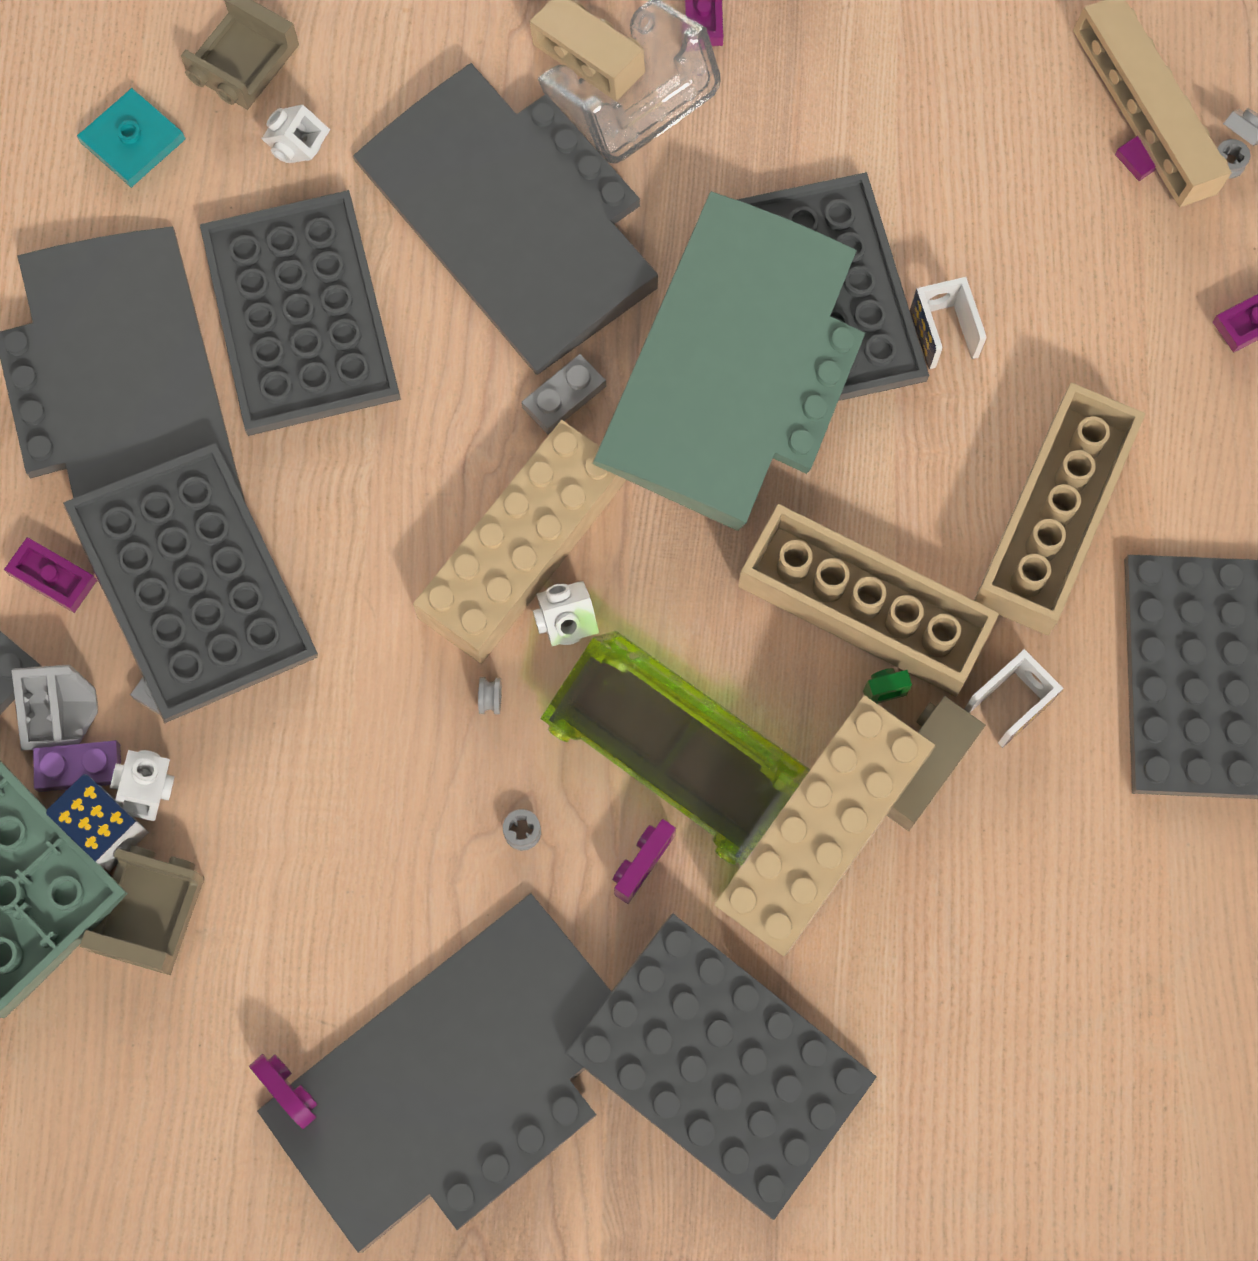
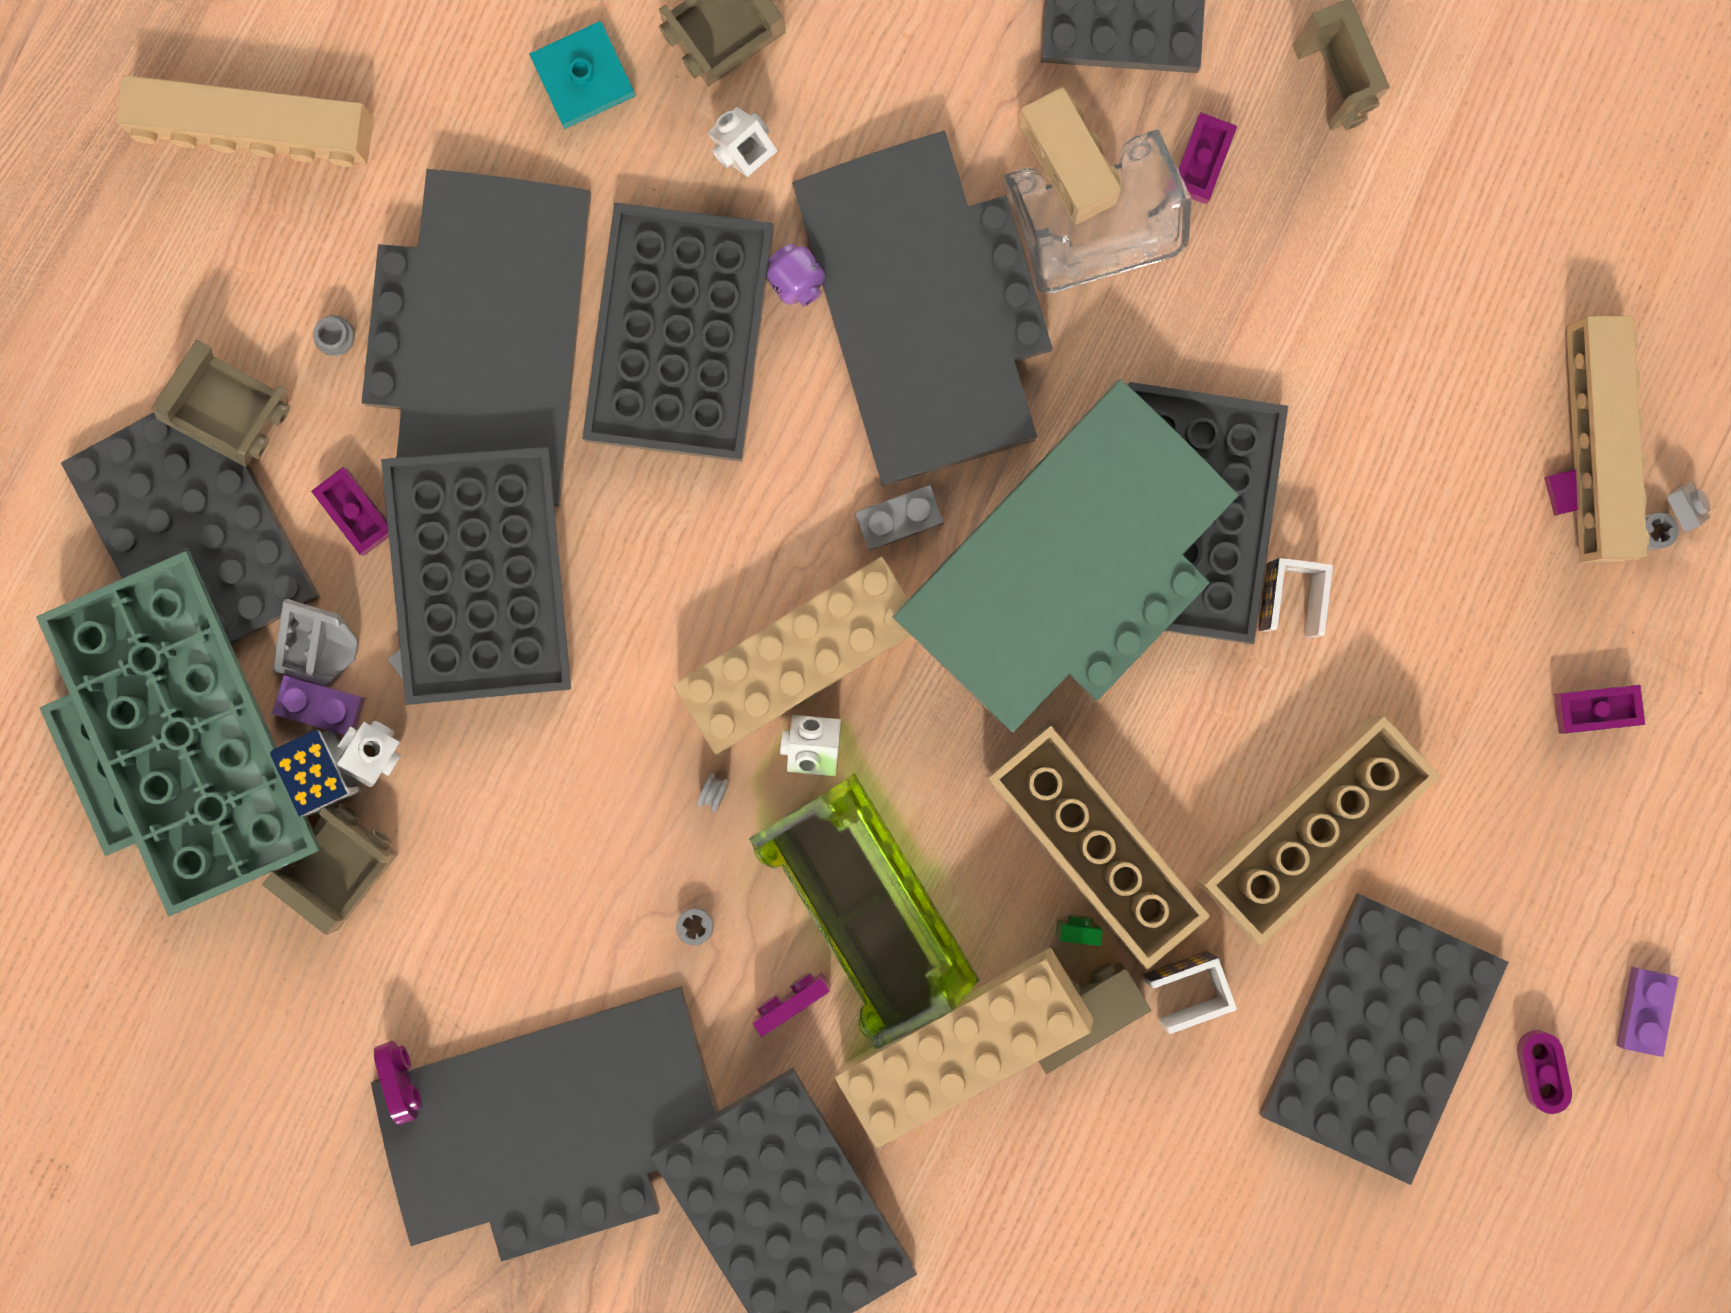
camera: 20 degrees right, 15 degrees up
(386, 226) = (795, 275): none -> medium lavender head

